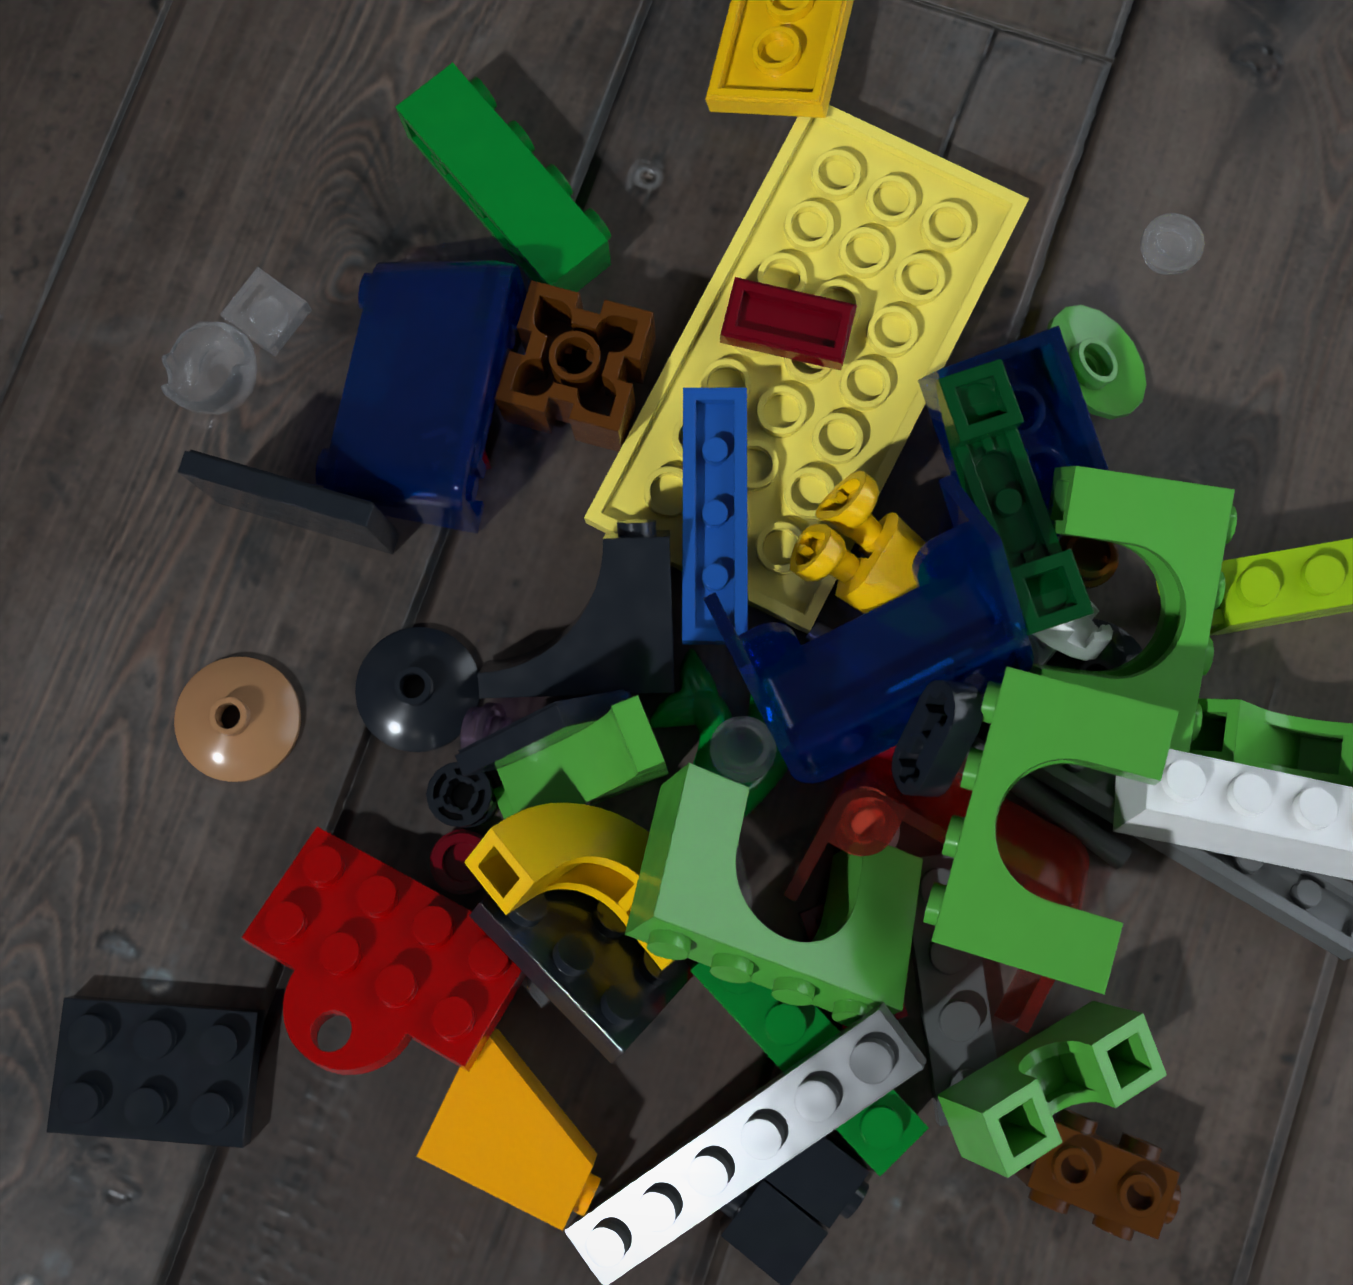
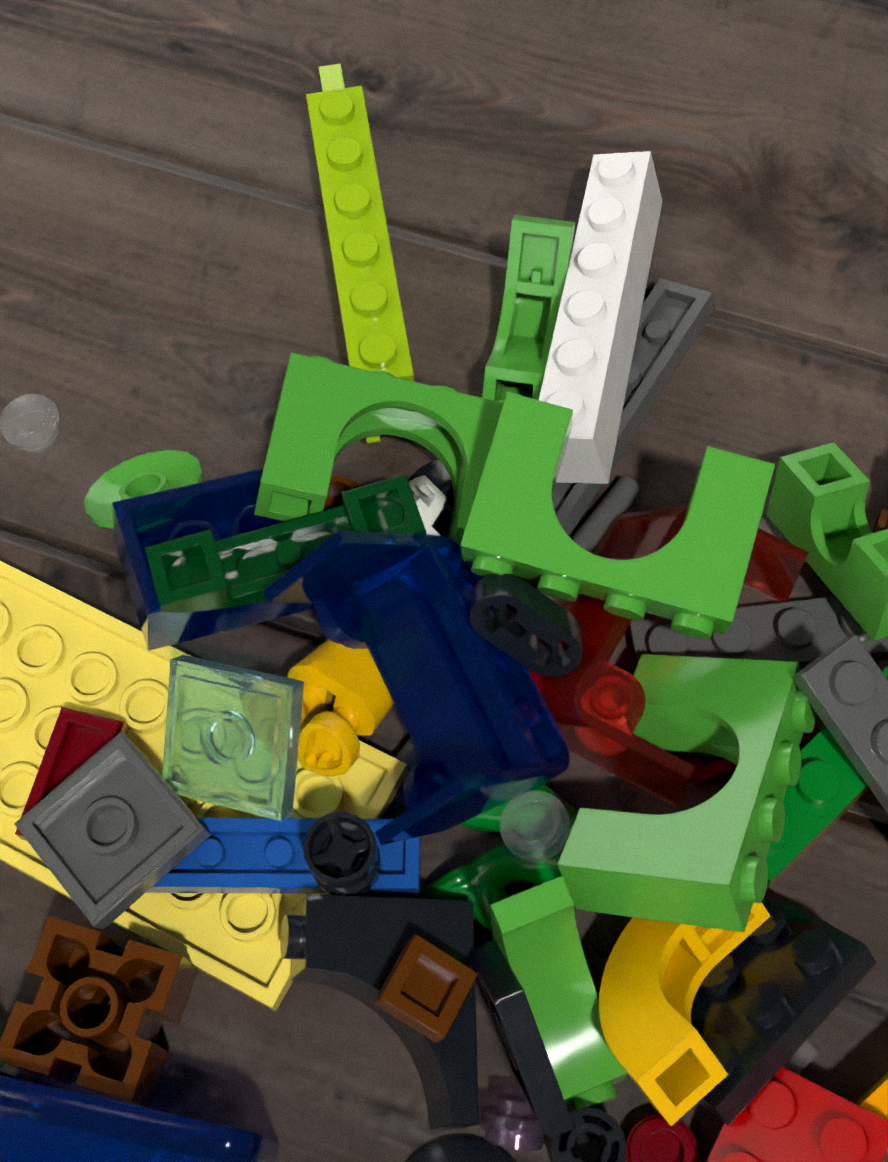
camera: 90 degrees left, 15 degrees down
(586, 646) = (425, 988): none -> reddish brown plate
(700, 556) = (338, 841): none -> black wheel
(733, 360) = (112, 831): none -> dark grey tile
(822, 461) = (232, 736): none -> clear light blue tile

